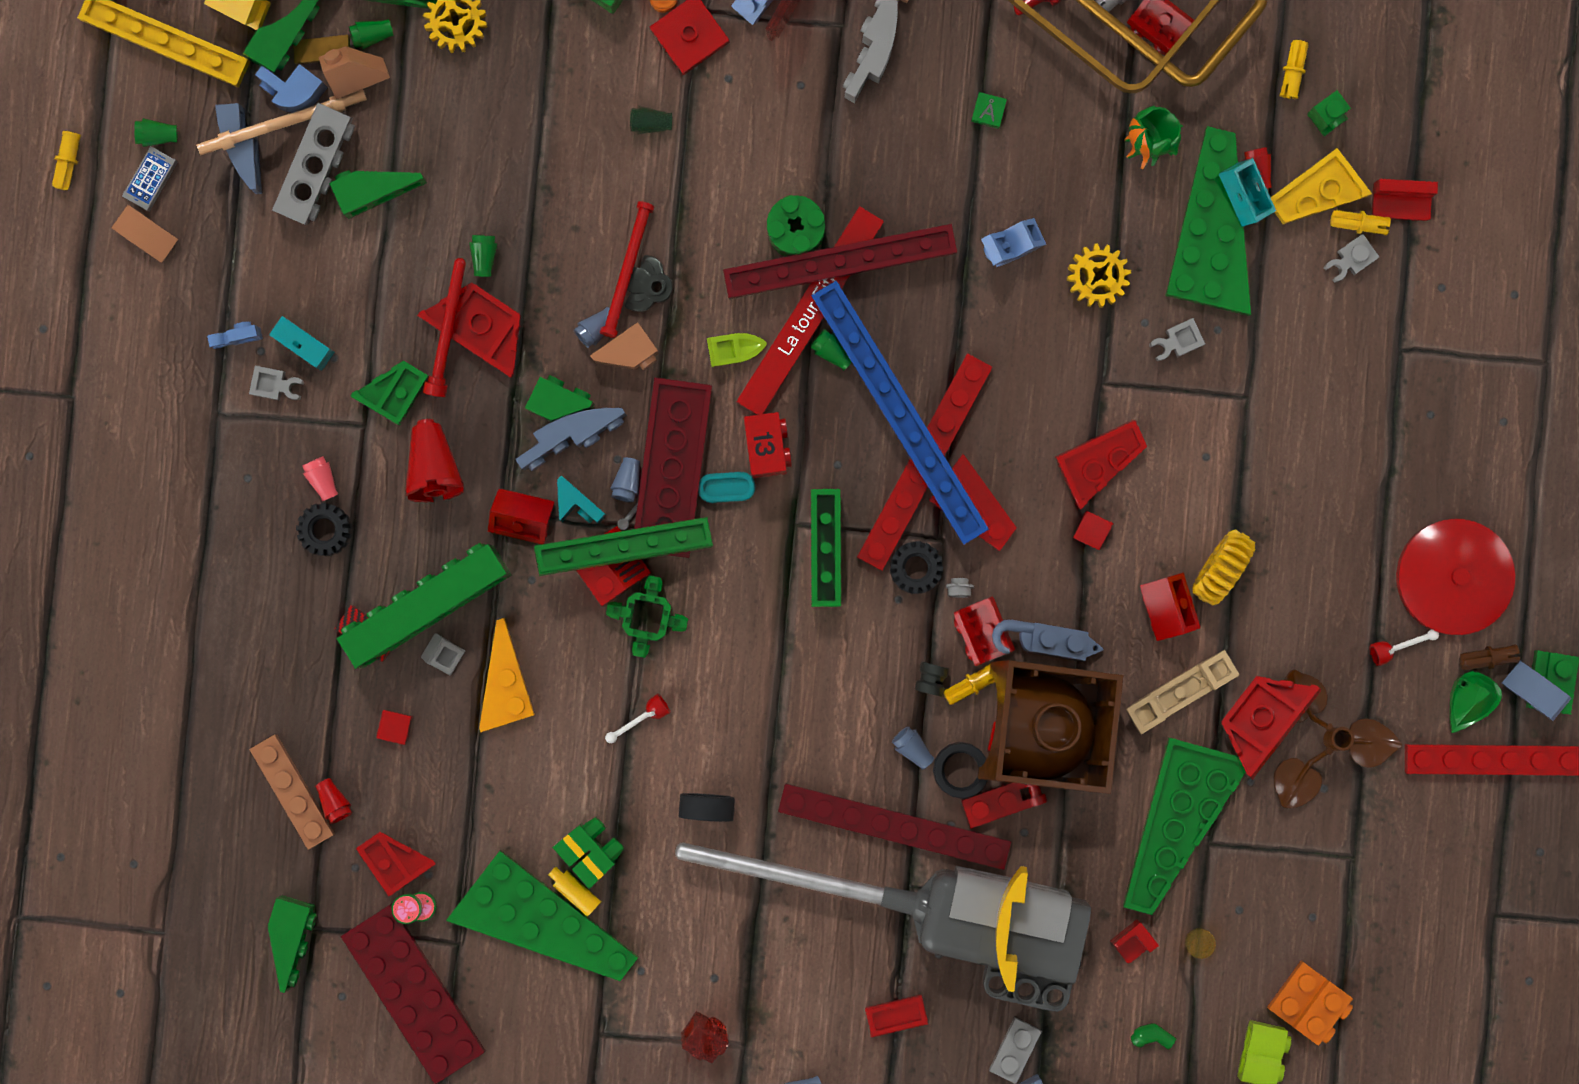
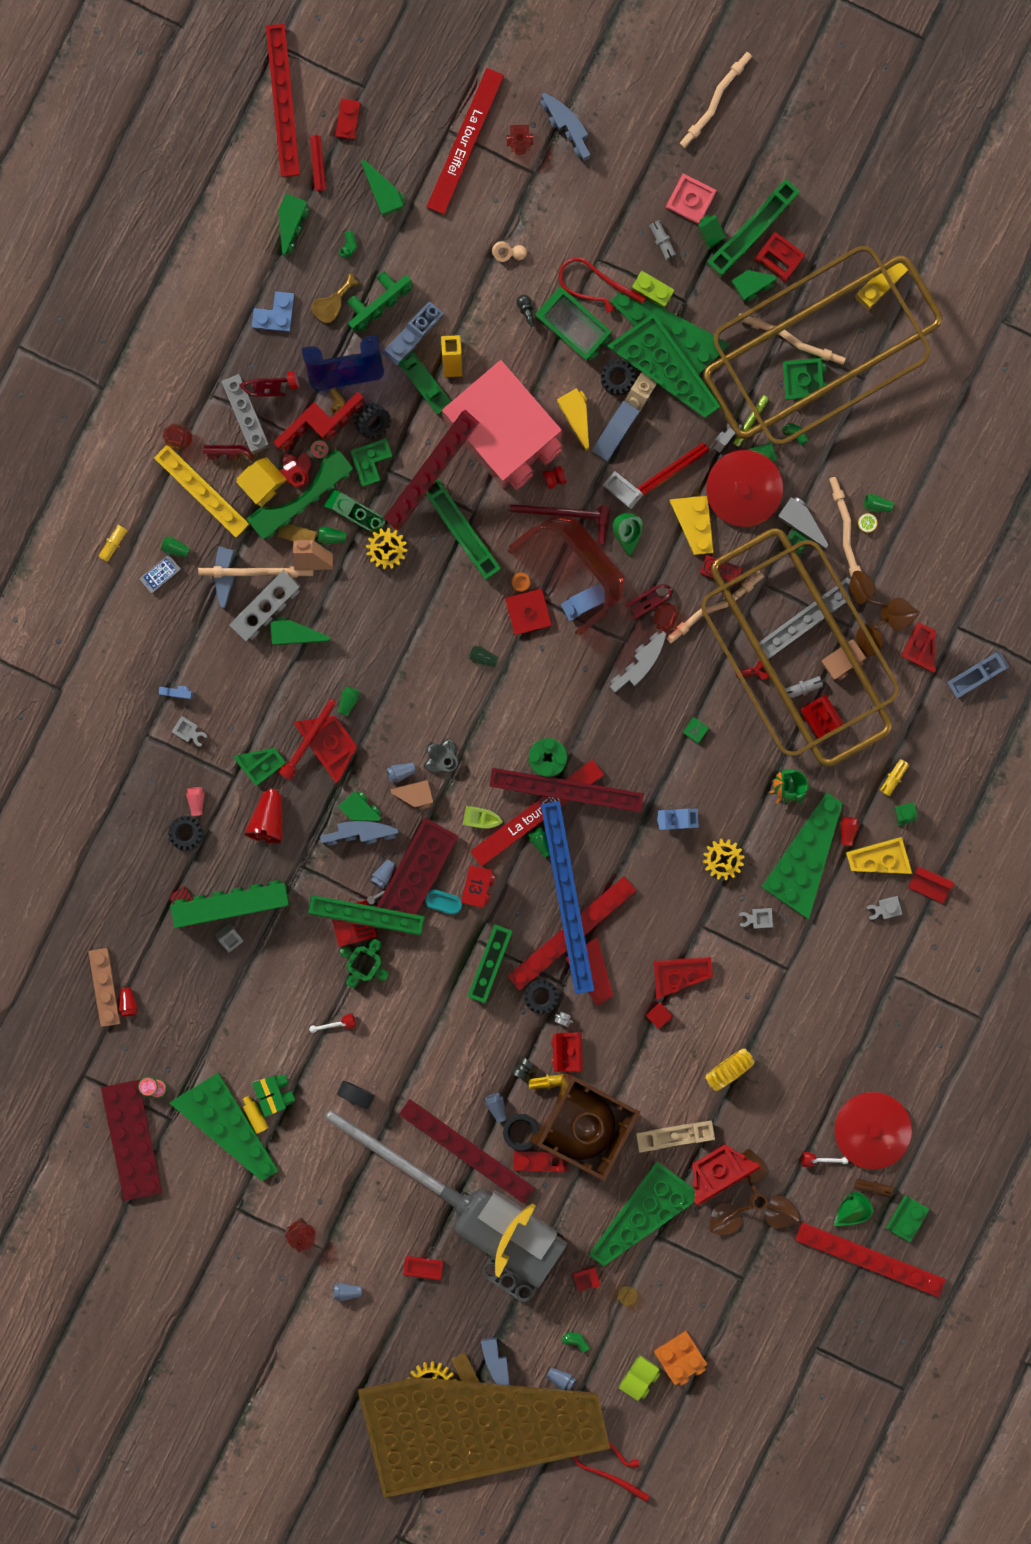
camera: 25 degrees right, 0 degrees up
(144, 233) = (144, 607): nougat slope -> none
(287, 935) = (69, 1072): green slope -> none
(293, 336) = (211, 705): teal piece -> none
(295, 94) = (272, 556): medium blue brick -> none
(392, 862) = (150, 1054): red wing -> none
(394, 727) = (182, 971): red tile -> none
(505, 692) = (259, 976): light orange wing -> none
(520, 516) = (309, 871): red panel -> none
(570, 497) = (345, 871): teal slope -> none
(644, 210) = (433, 744): red bar -> none
(1015, 1050) = (488, 1317): light grey plate -> none
(1047, 640) = (604, 1072): sand blue plate -> none
(1170, 606) = (686, 1077): red brick -> none
(1257, 202) = (839, 852): teal piece -> none
(1360, 222) = (898, 888): yellow axle -> none
(1536, 690) = (893, 1219): sand blue slope -> none

